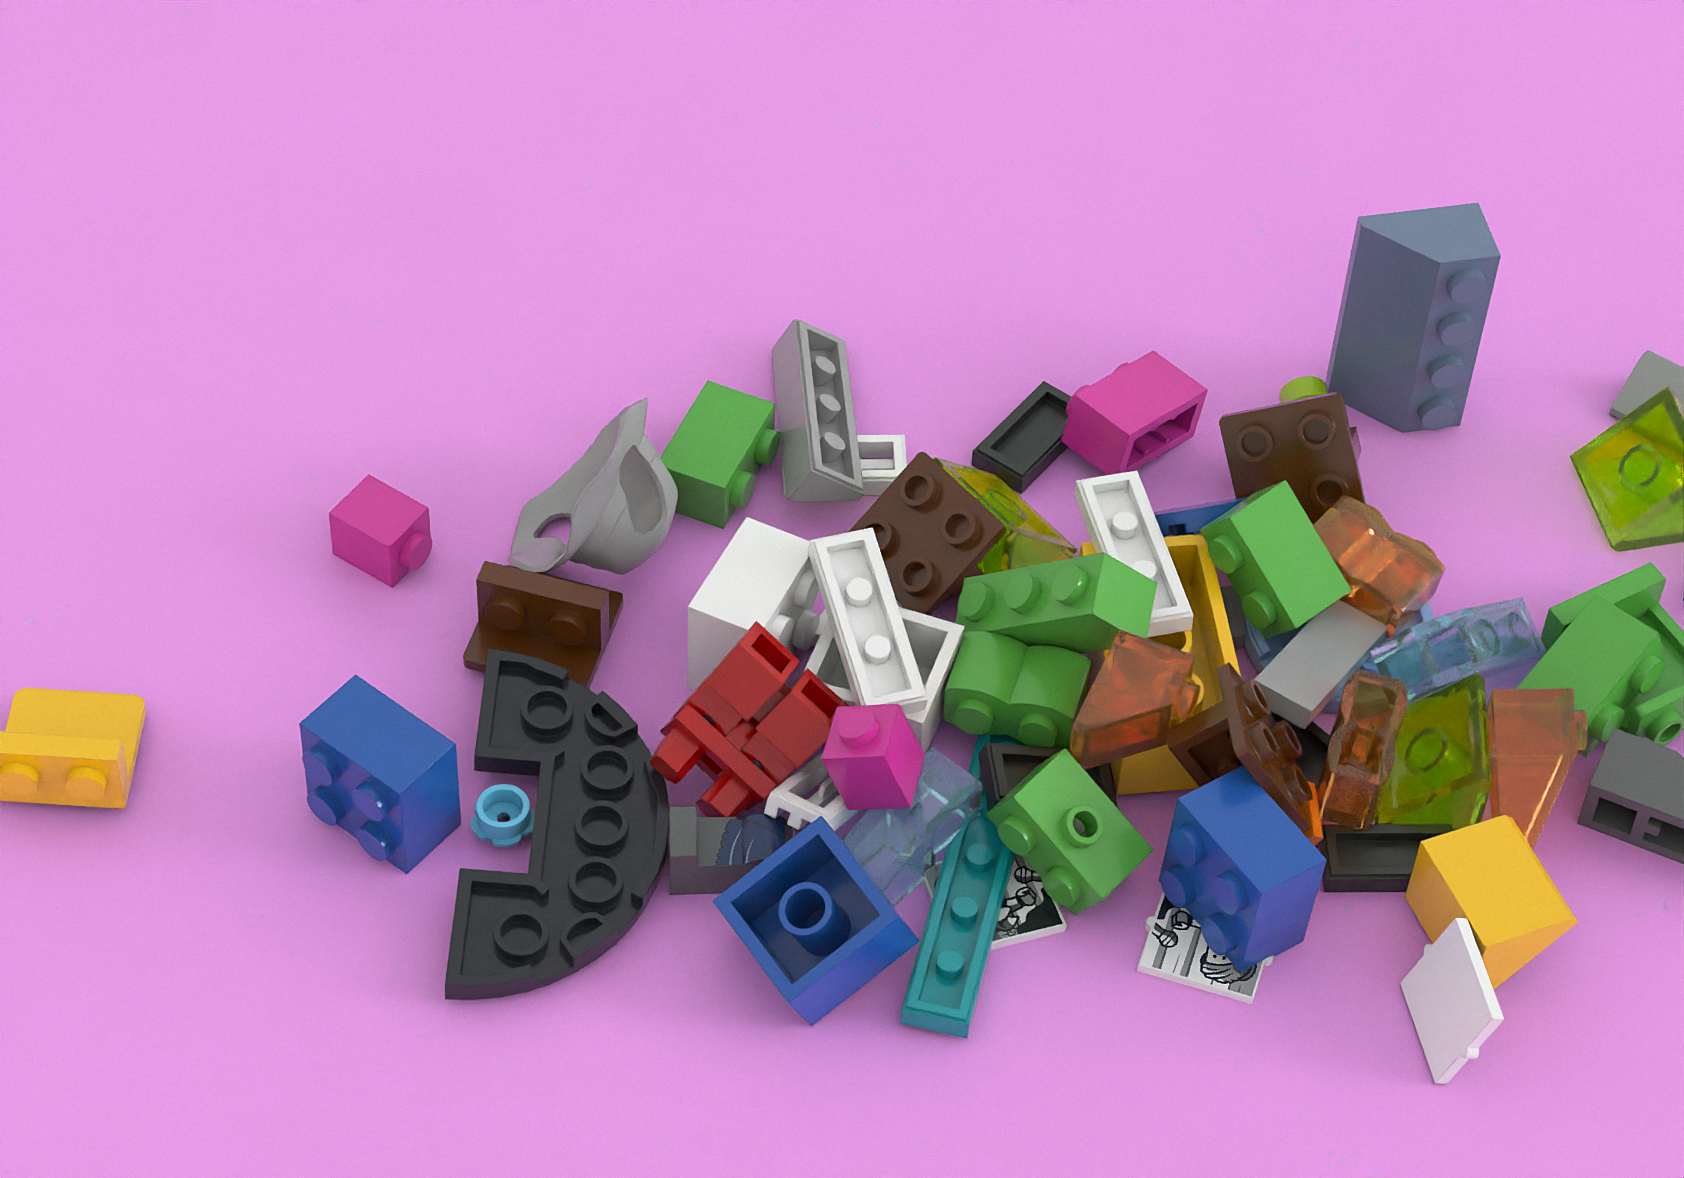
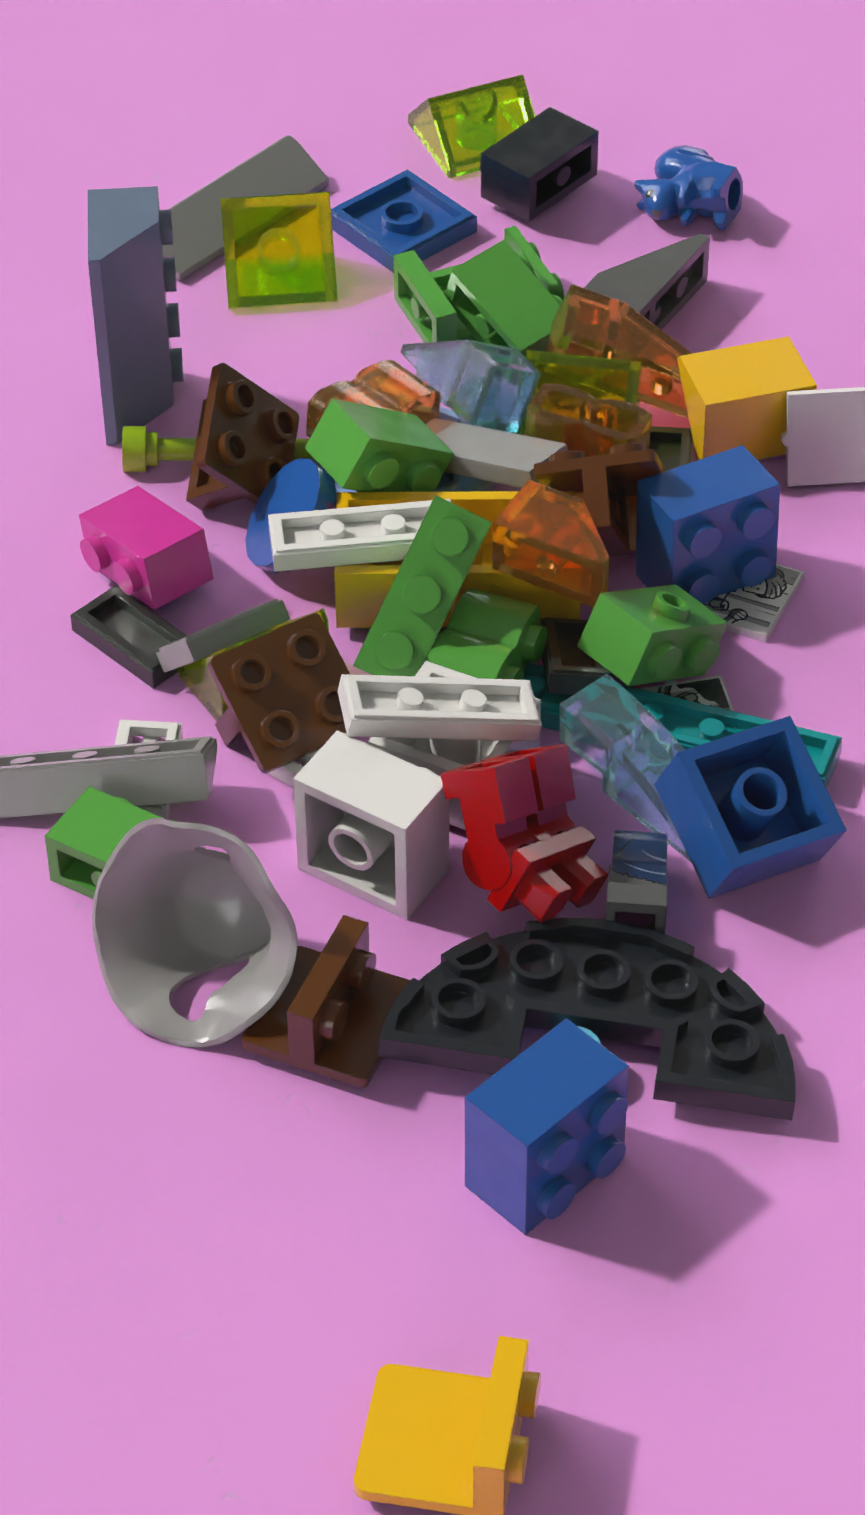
camera: 80 degrees left, 5 degrees down
(381, 531) = (179, 1138): dark pink brick -> none
(824, 803) = (605, 802): white tile -> none
(873, 757) = (593, 724): dark pink brick -> none
(1020, 489) = (222, 635): none -> light grey tile

